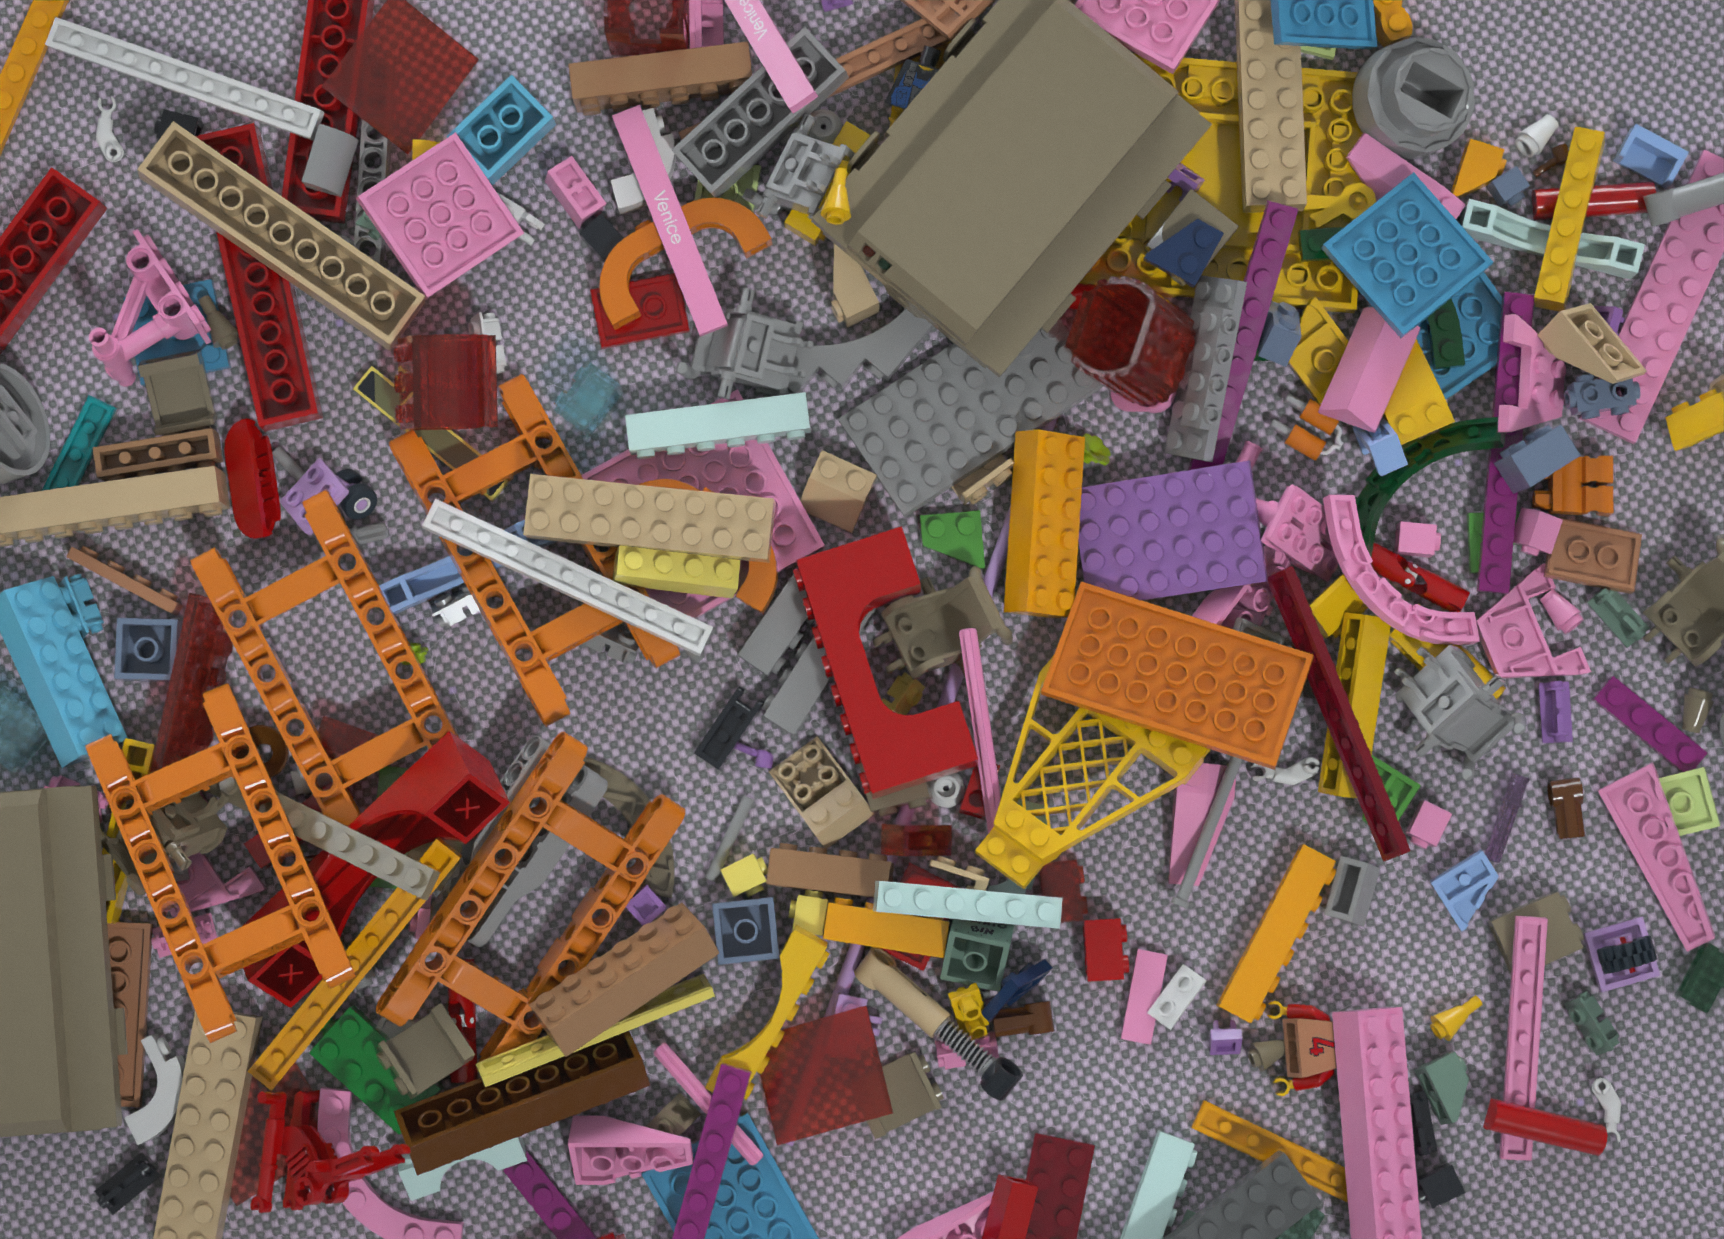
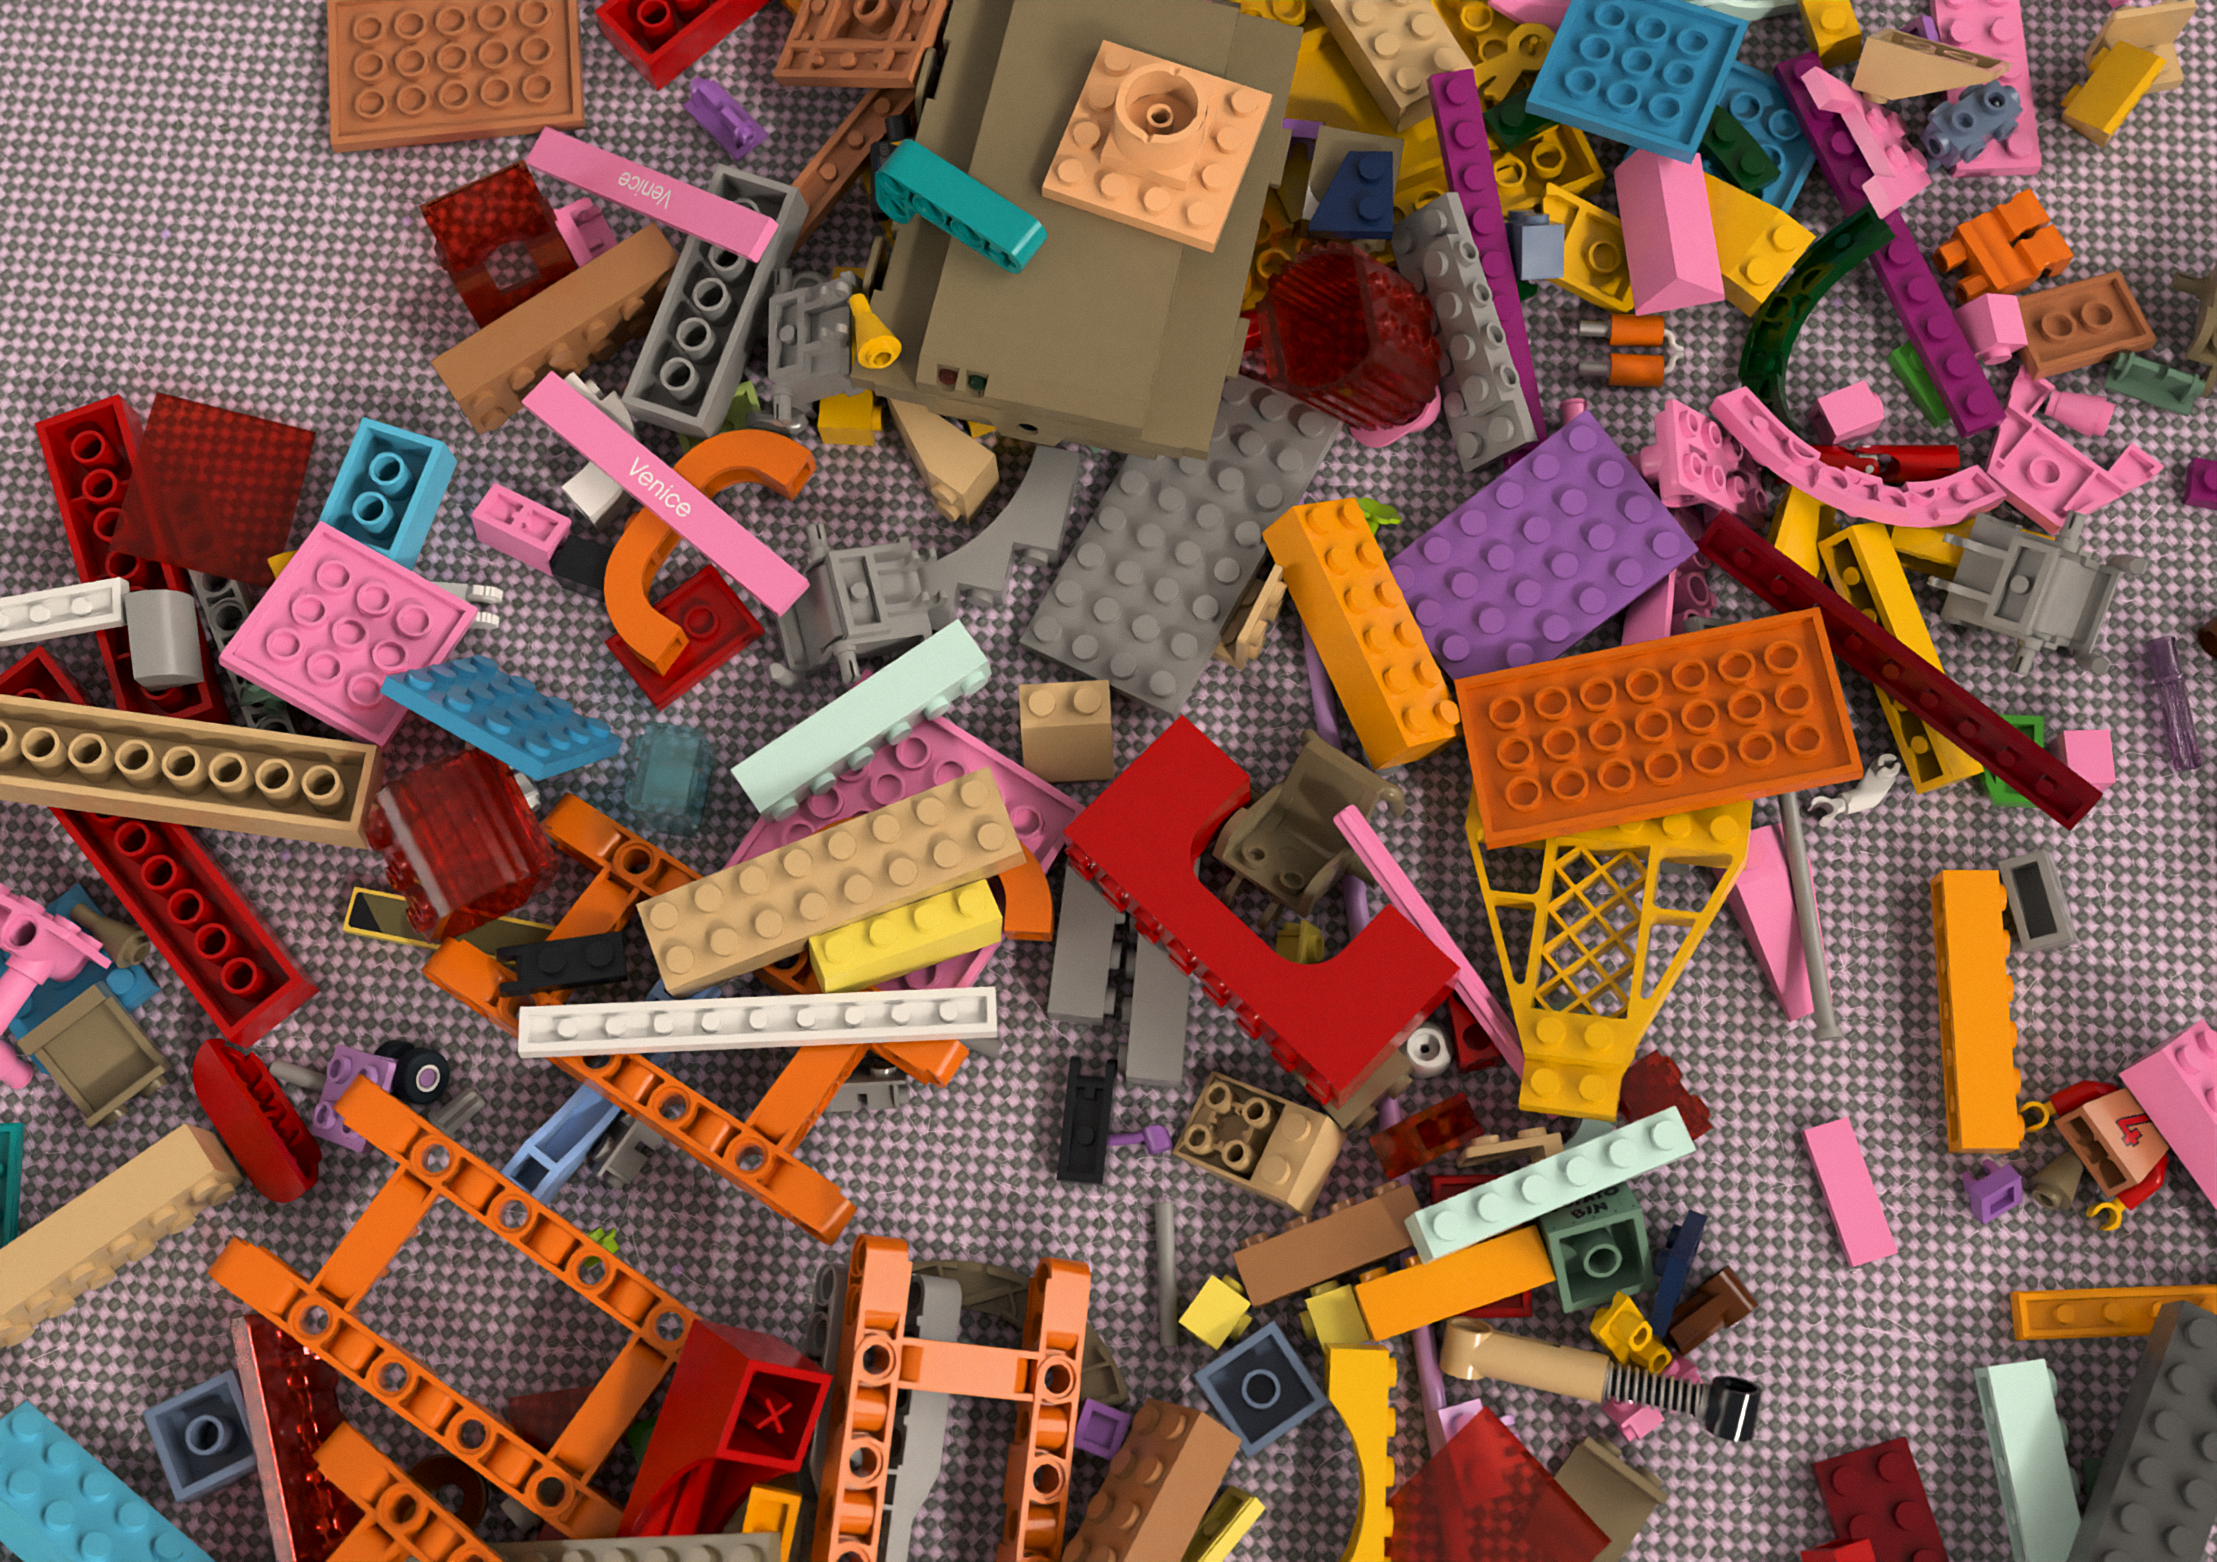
camera: 25 degrees left, 10 degrees down
(75, 595) = (73, 1413): medium azure hinge -> none
(136, 585) = (117, 1352): nougat plate -> none
(158, 455) = (102, 1149): medium nougat brick -> none
(473, 484) = (565, 964): none -> black hinge
(508, 314) = (503, 716): none -> dark azure plate
(929, 151) = (926, 184): none -> teal beam
(955, 535) = (1252, 712): bright green wing -> none
(1067, 197) = (1157, 146): none -> light nougat piece
(1104, 949) = (1761, 1155): red brick -> none
(1176, 996) = (1896, 1167): white hinge -> none
(1382, 446) = (1744, 307): light blue panel -> none
(1465, 887) = (2180, 819): light blue wing -> none
(1539, 457) = (1947, 223): sand blue brick -> none
(1555, 712) = (2150, 539): medium lavender hinge -> none

